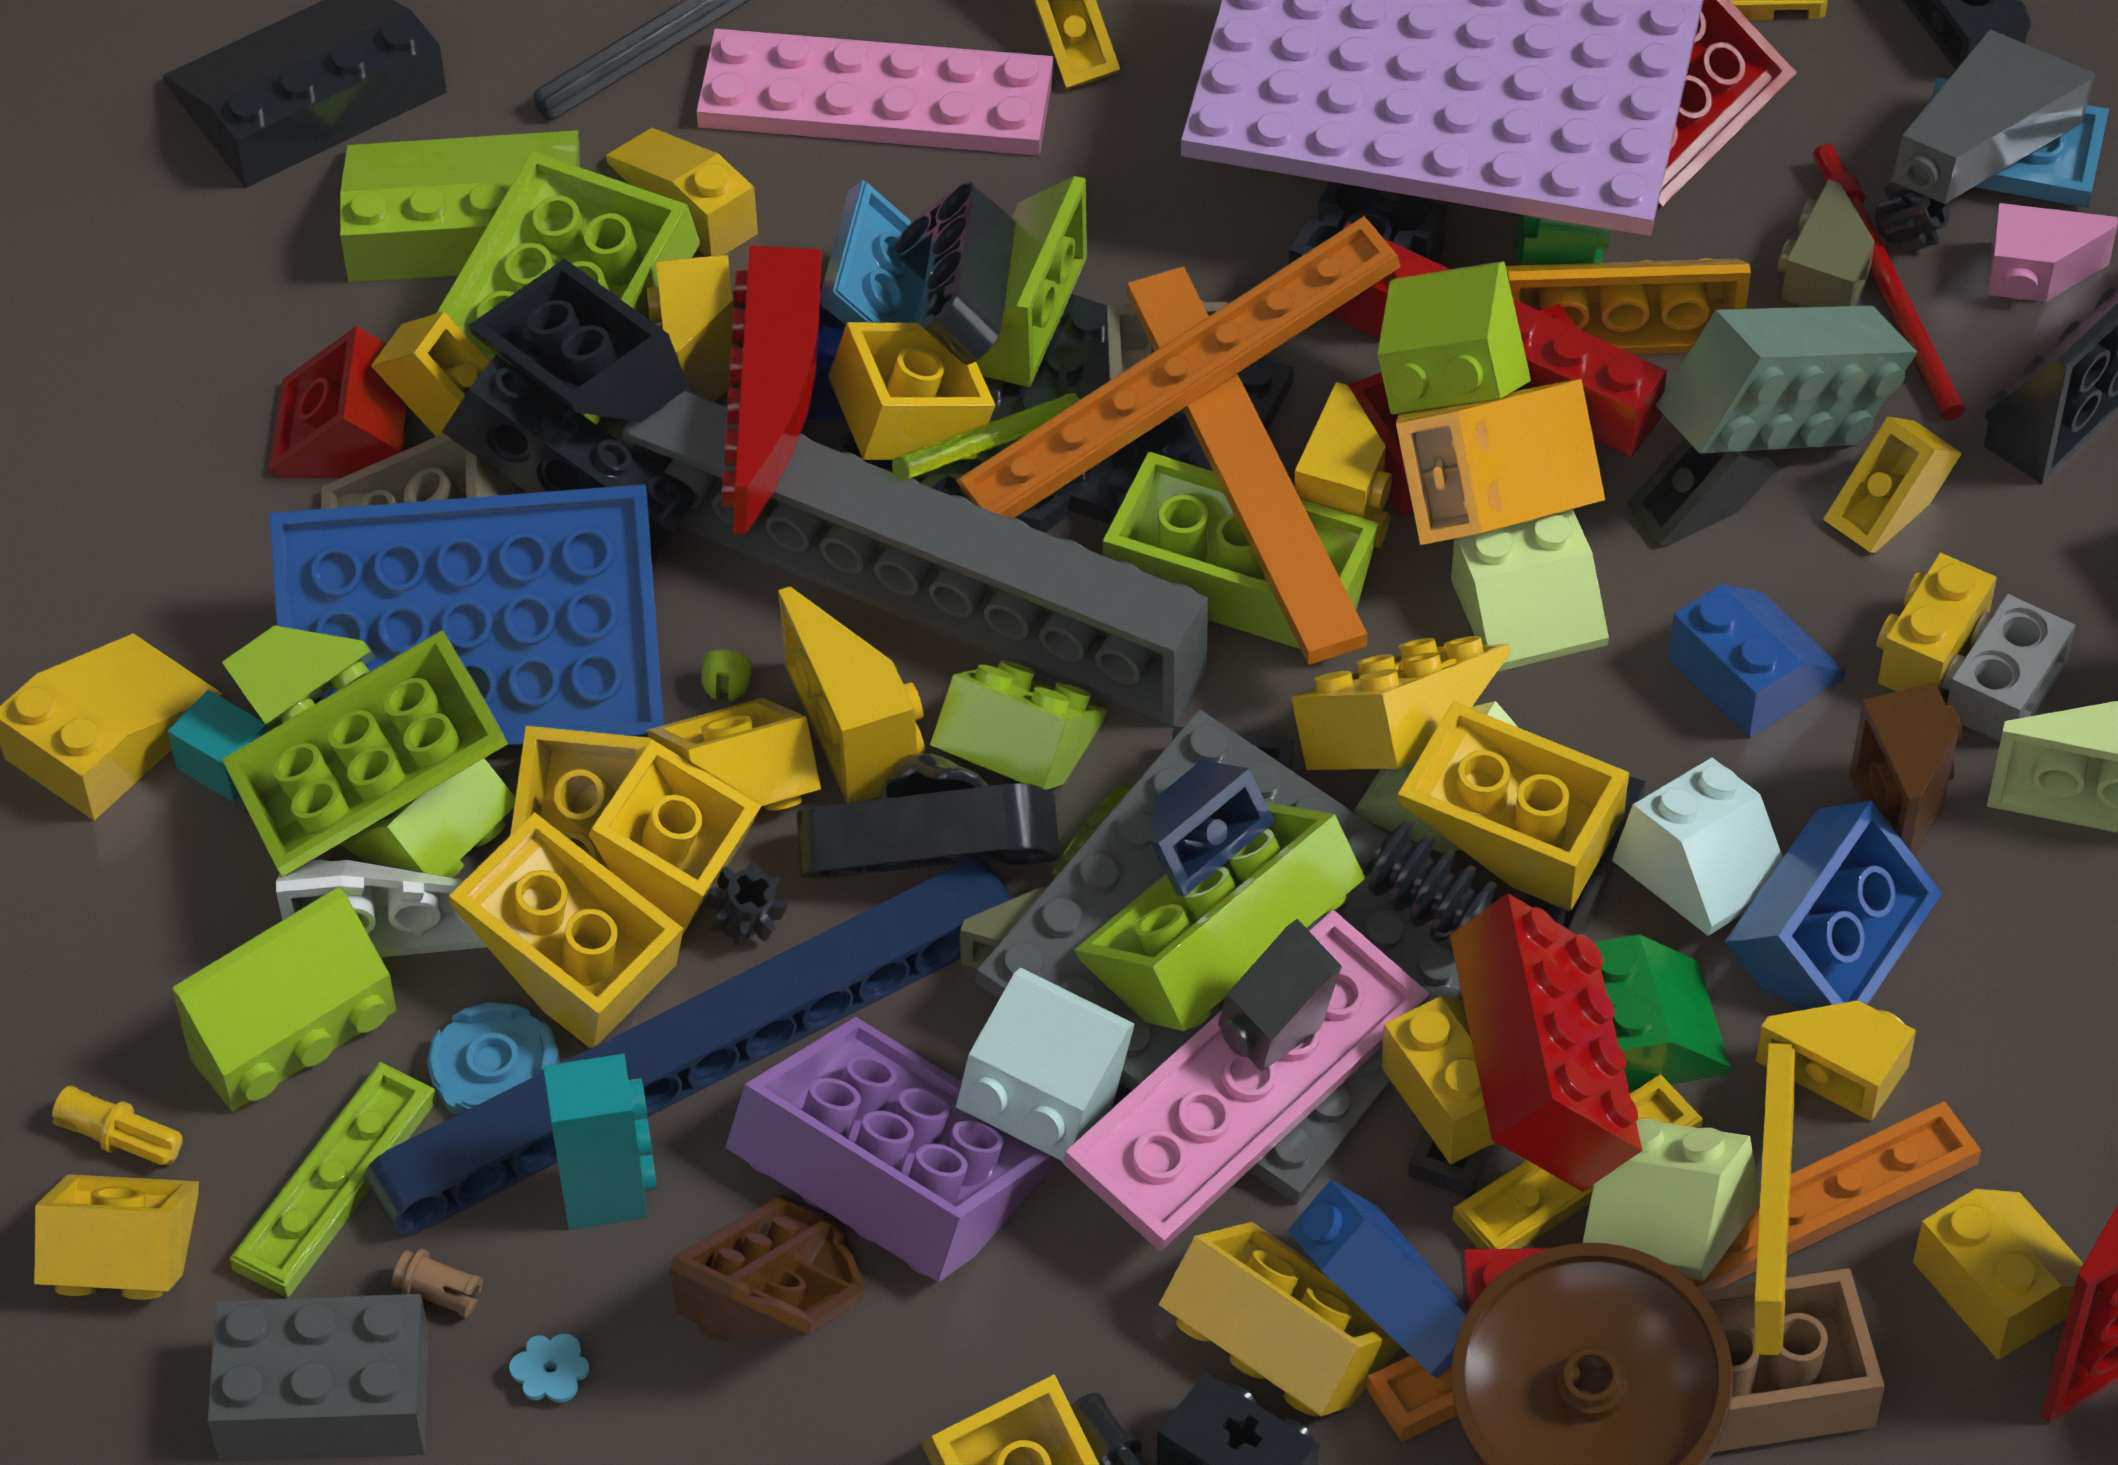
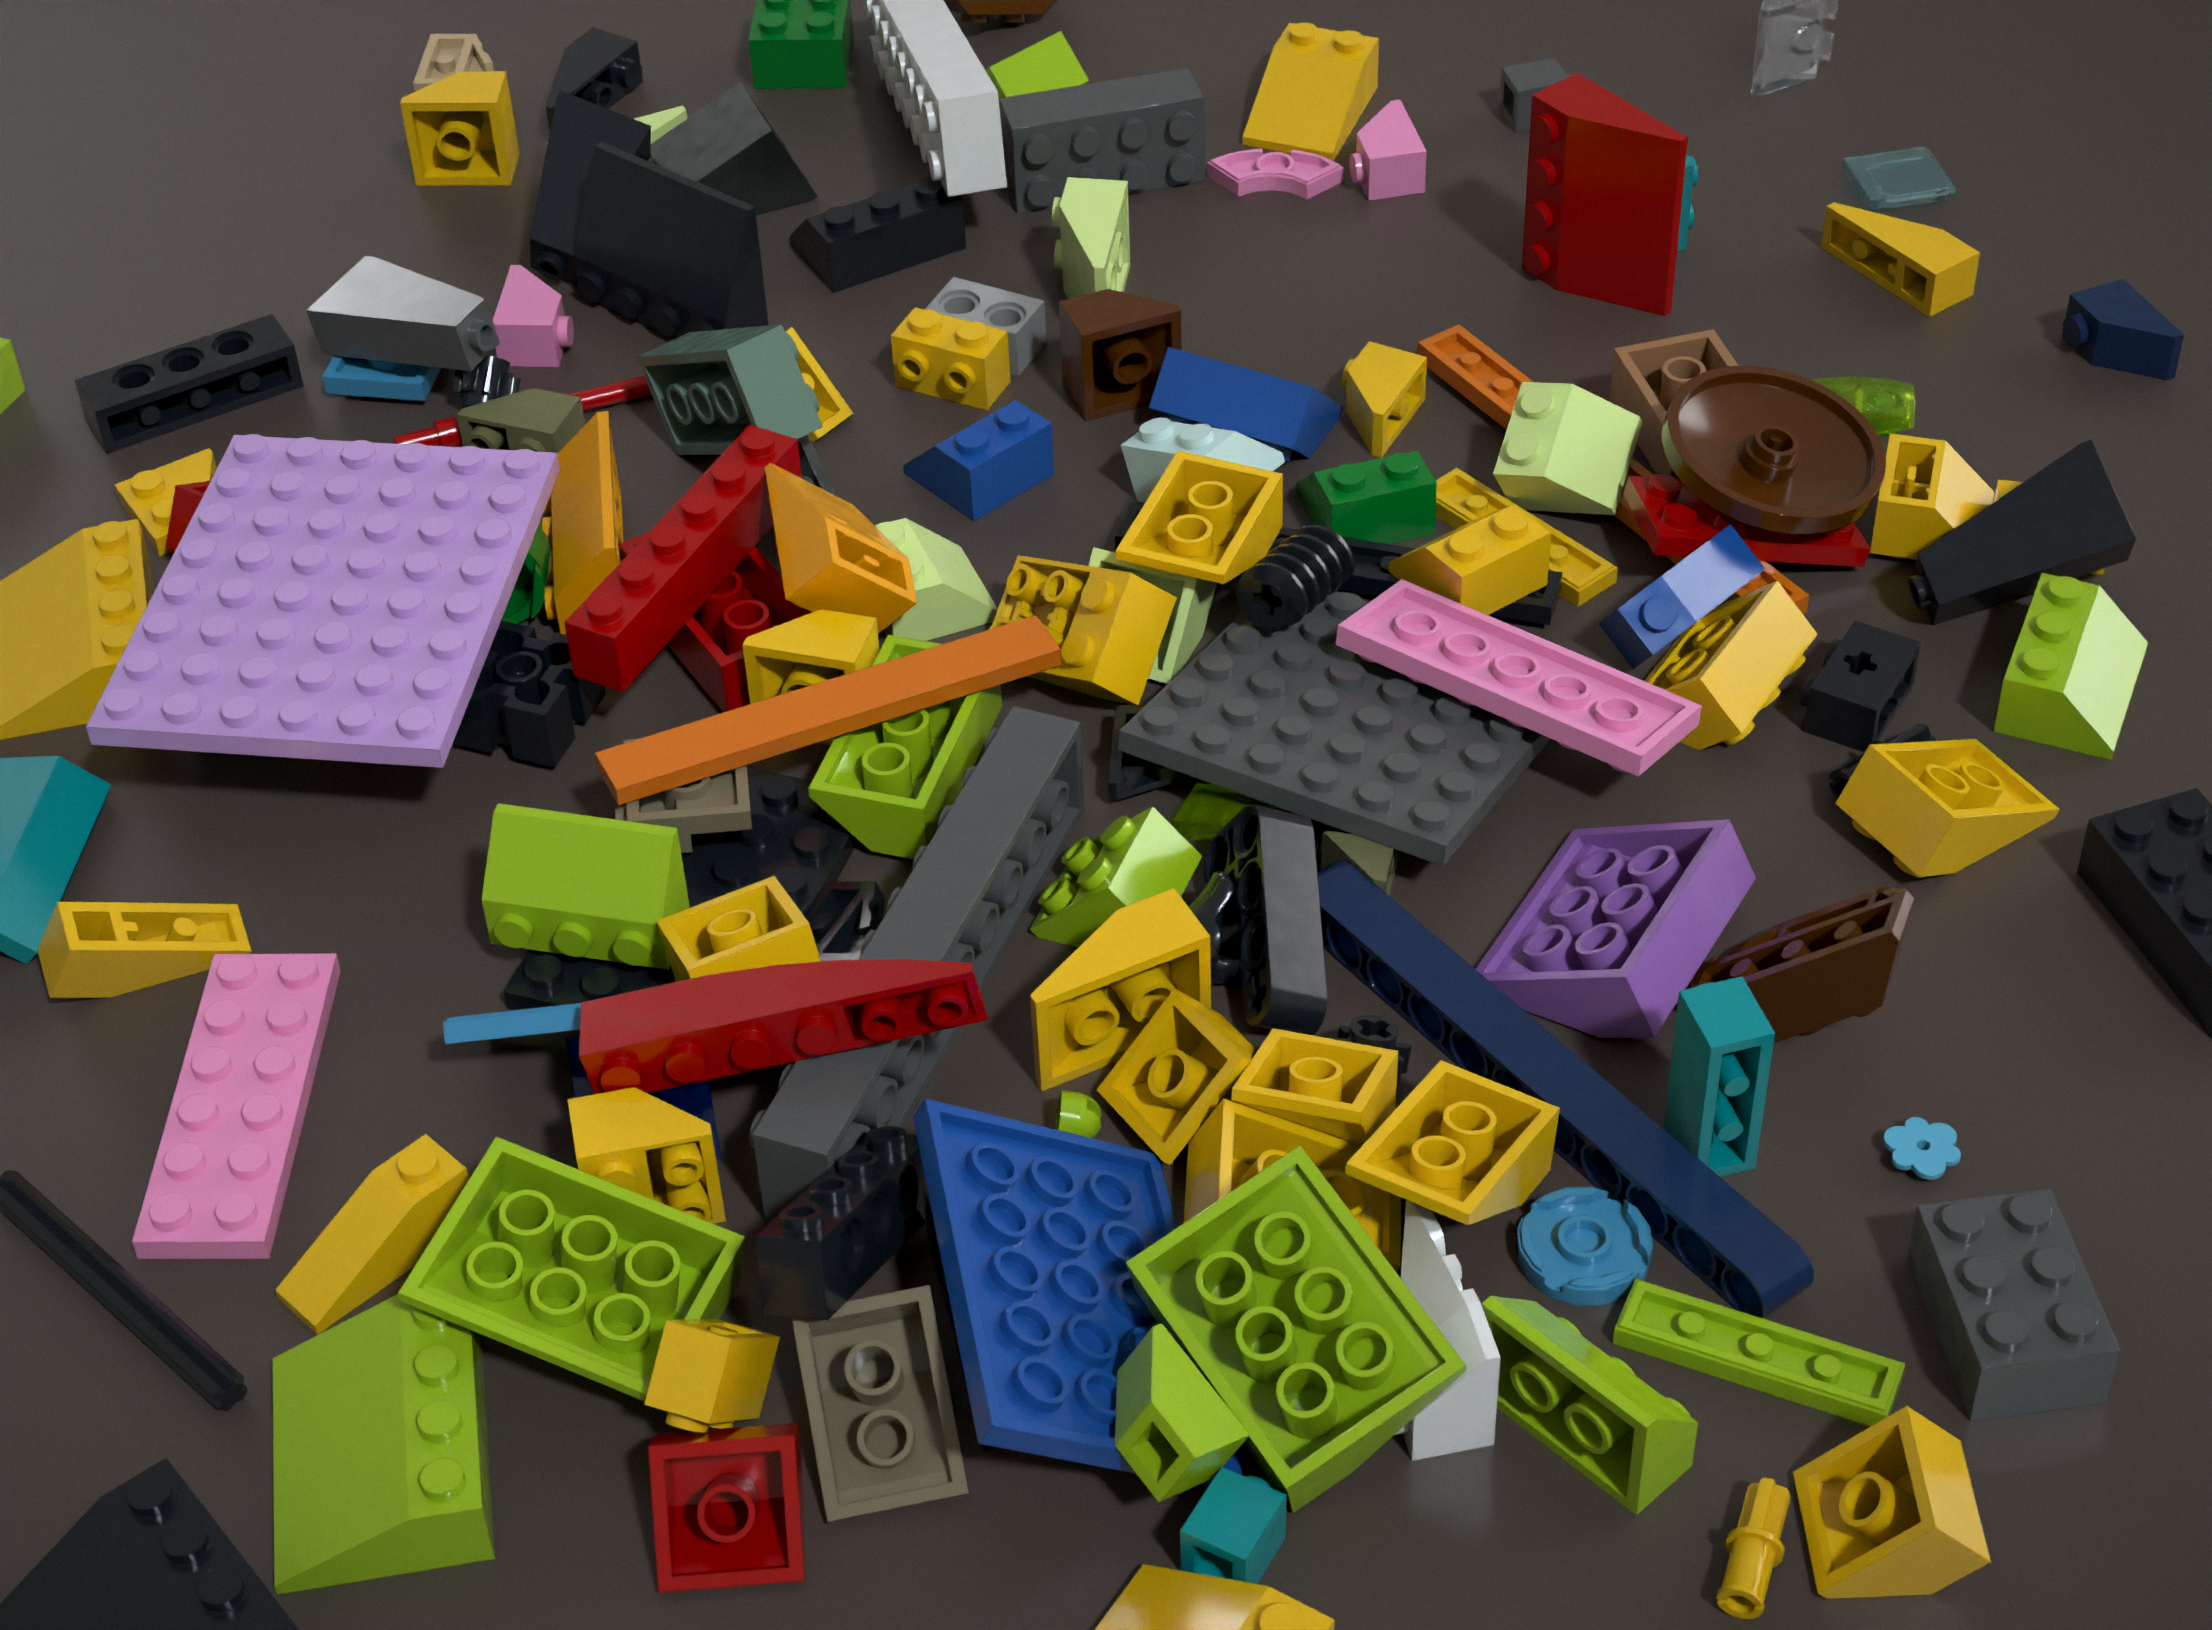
camera: 95 degrees left, 10 degrees down
(435, 1282) = (1861, 1250): medium nougat pin -> none
(584, 346) = (736, 1163): black slope -> none
(964, 259) = (606, 907): black beam -> none
(979, 438) = (808, 898): clear neon green bar -> none
(1045, 1064) = (1530, 809): light aqua slope -> none
(1181, 371) = (745, 743): orange tile -> none
(1184, 954) = (1359, 683): lime slope -> none
(1206, 821) = (1281, 681): dark blue slope -> none
(1280, 997) = (1472, 609): pearl dark grey slope -> none
(1451, 339) = (726, 540): lime slope -> none
(1545, 1043) = (1466, 479): red brick -> none
(1774, 1200) = (1602, 370): yellow tile -> none
(1998, 1267) = (1562, 319): yellow slope -> none

